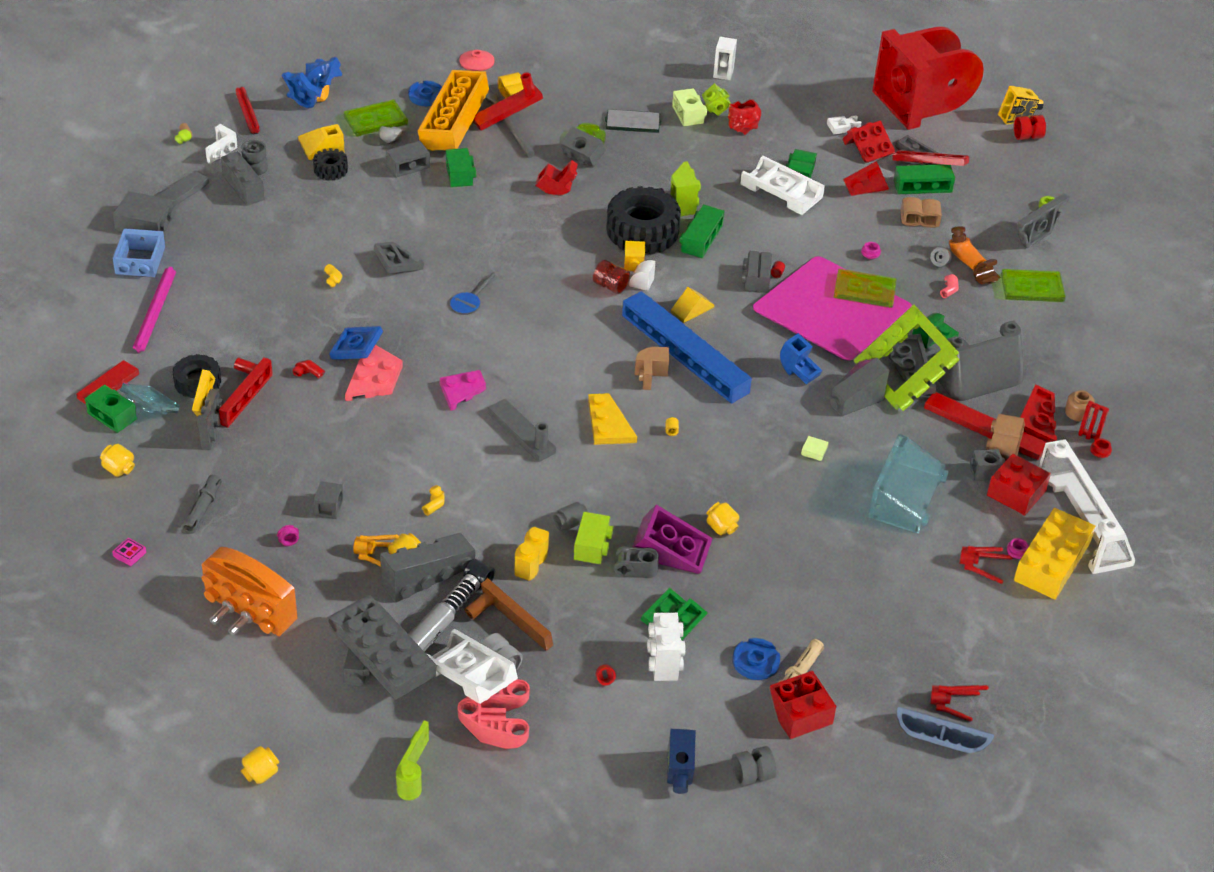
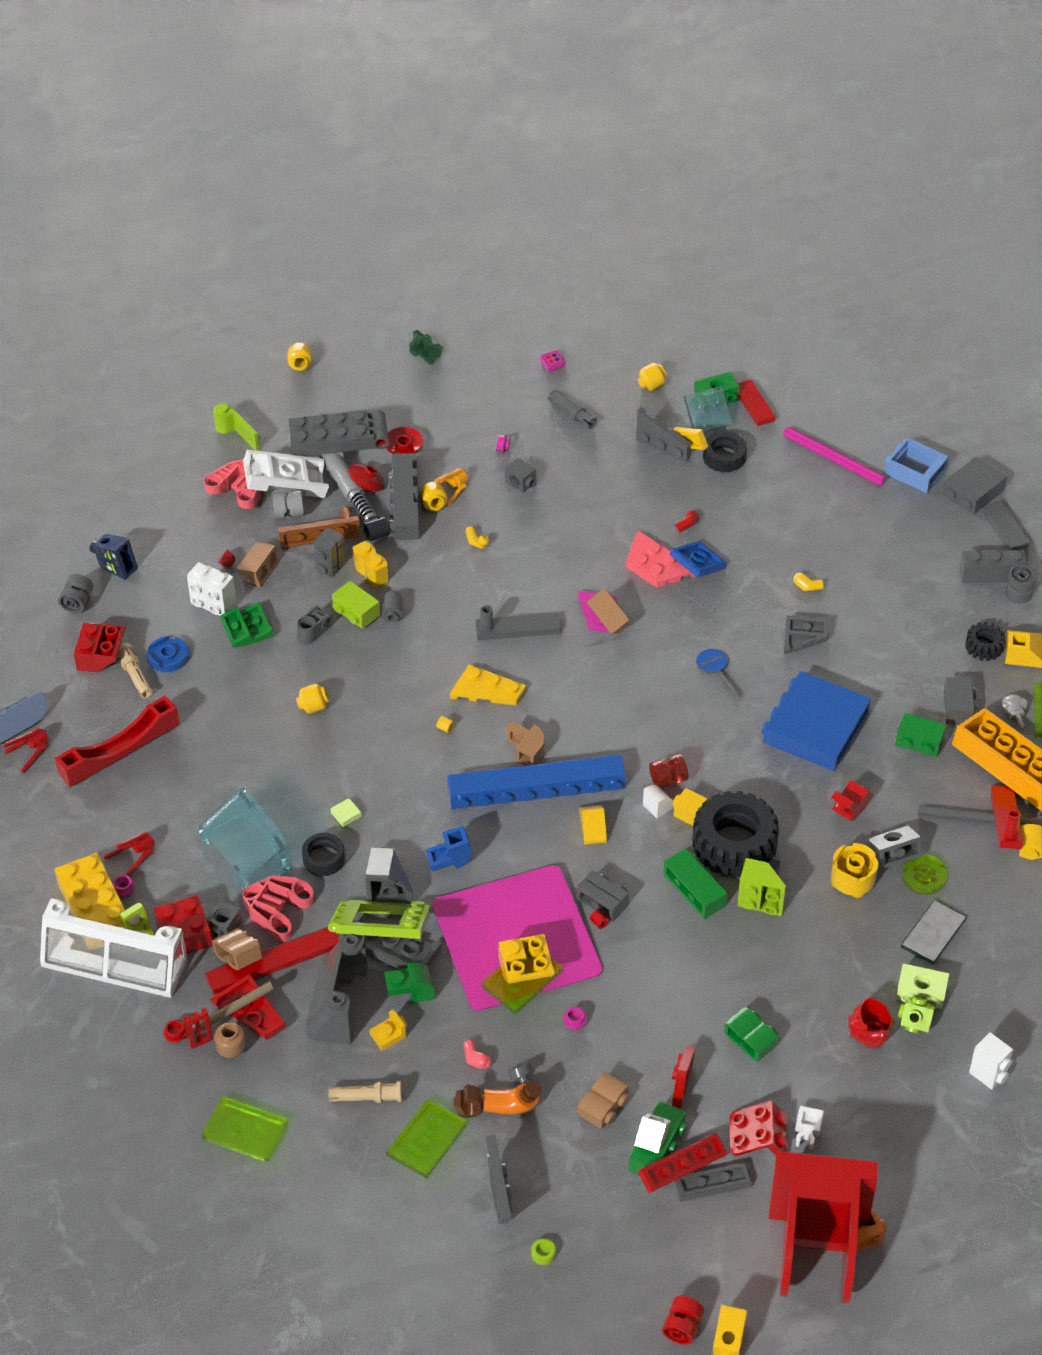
camera: 125 degrees right, 5 degrees up
(176, 659) = (423, 347): none -> clear green hips
(247, 390) = (696, 485): red piece -> none
(249, 590) = (450, 392): orange piece -> none
(334, 602) = (404, 441): none -> red dish
(415, 611) = (366, 477): none -> red dish
(470, 363) = (609, 612): none -> medium nougat hinge
(489, 221) = (816, 720): none -> blue brick
(547, 581) = (329, 552): none -> dark grey brick
(594, 639) = (259, 563): none -> medium nougat hinge
(621, 158) = (854, 869): none -> yellow brick
(675, 540) = (315, 654): magenta slope -> none
(784, 183) = (725, 992): white piece -> none
(865, 273) = (525, 959): none -> yellow slope
(868, 449) = (323, 868): none -> black tyre
(930, 166) = (652, 1132): none -> white brick
(936, 638) = (83, 762): none -> red arch
(939, 447) = (270, 899): none -> coral connector
(975, 334) = (389, 1031): none -> yellow bracket
(1030, 318) = (377, 1092): none -> tan pin
(1052, 498) = (136, 919): none -> lime piece
(1055, 419) = (238, 1004): none -> dark tan bar
(1127, 375) = (244, 1128): none -> clear neon green tile

